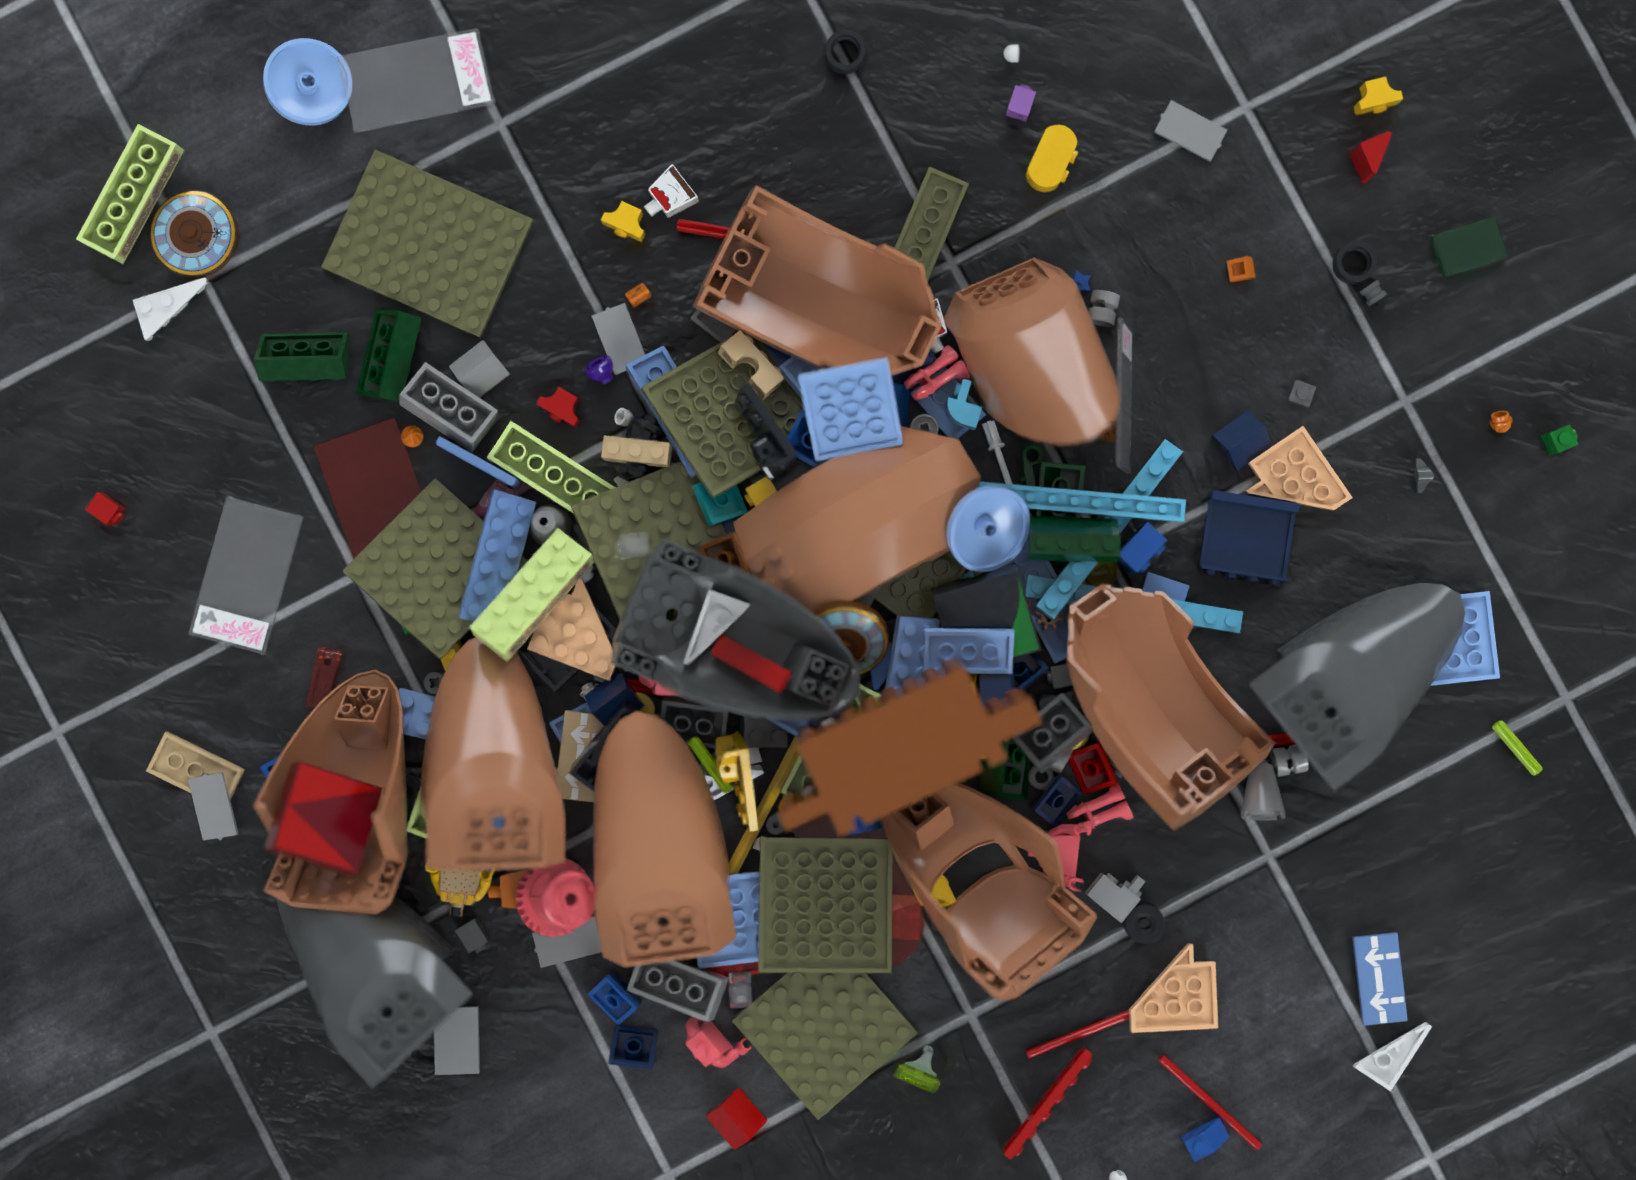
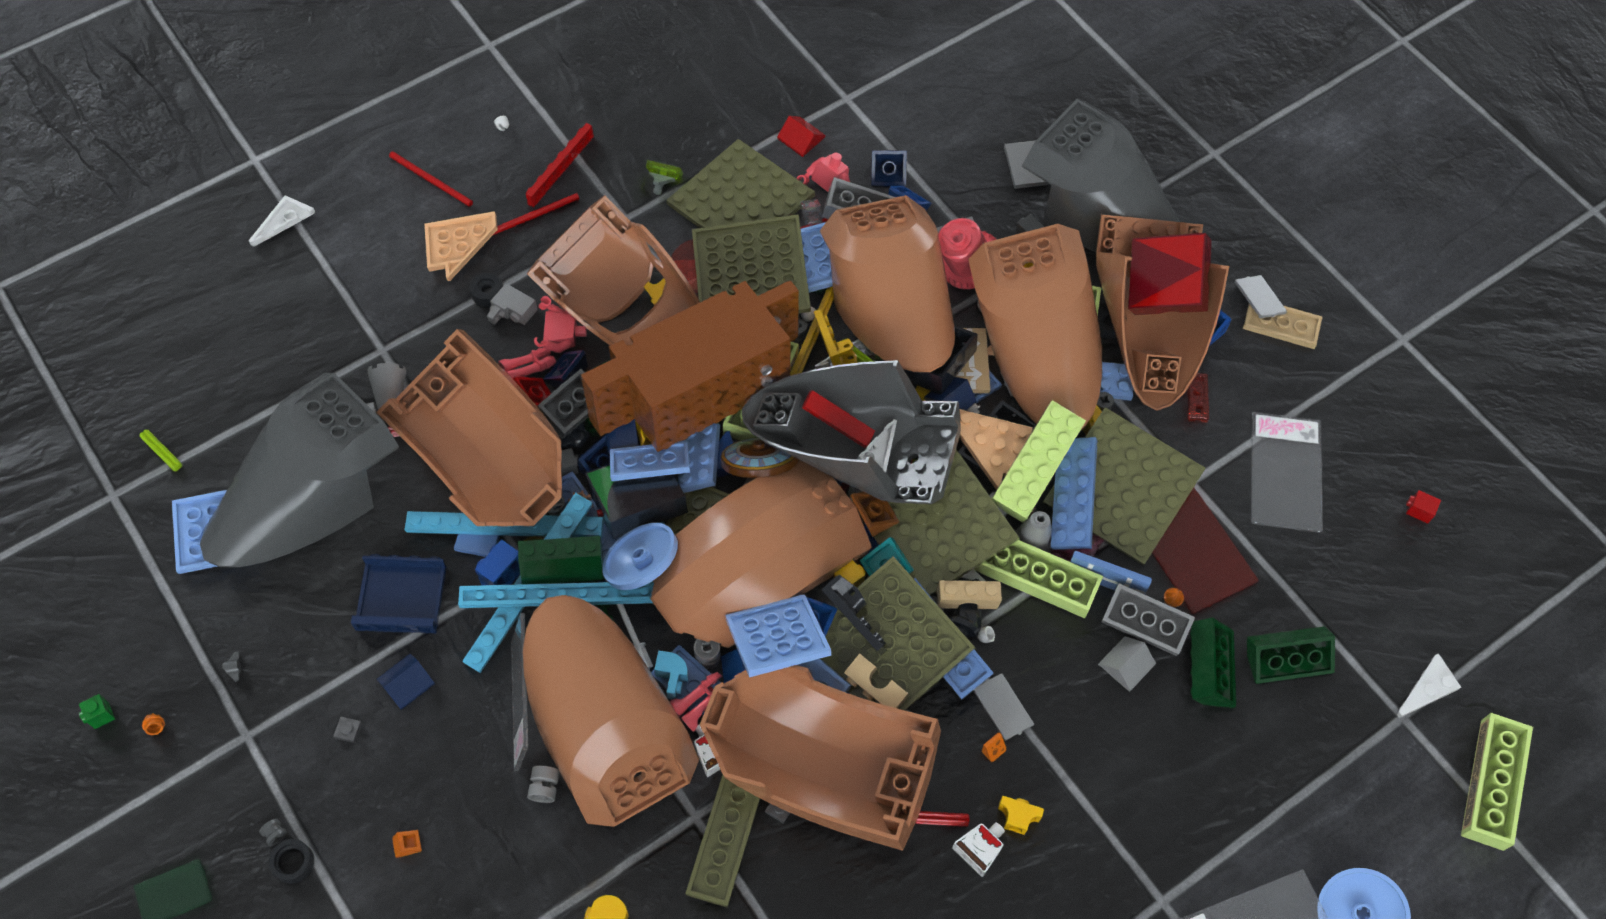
camera: 170 degrees right, 25 degrees down
(194, 234) = (1425, 756): dish -> none
(427, 243) = (1204, 774): olive plate -> none
(561, 407) = (1045, 636): red brick -> none
(600, 369) = (1016, 673): dark purple brick -> none
(633, 545) = (957, 506): clear brick -> none
(1082, 281) = (567, 811): blue piece -> none
(1205, 1139) = (434, 152): blue slope -> none
(1298, 473) = (353, 654): light nougat wing -> none
(1379, 978) = (290, 272): medium blue tile -> none

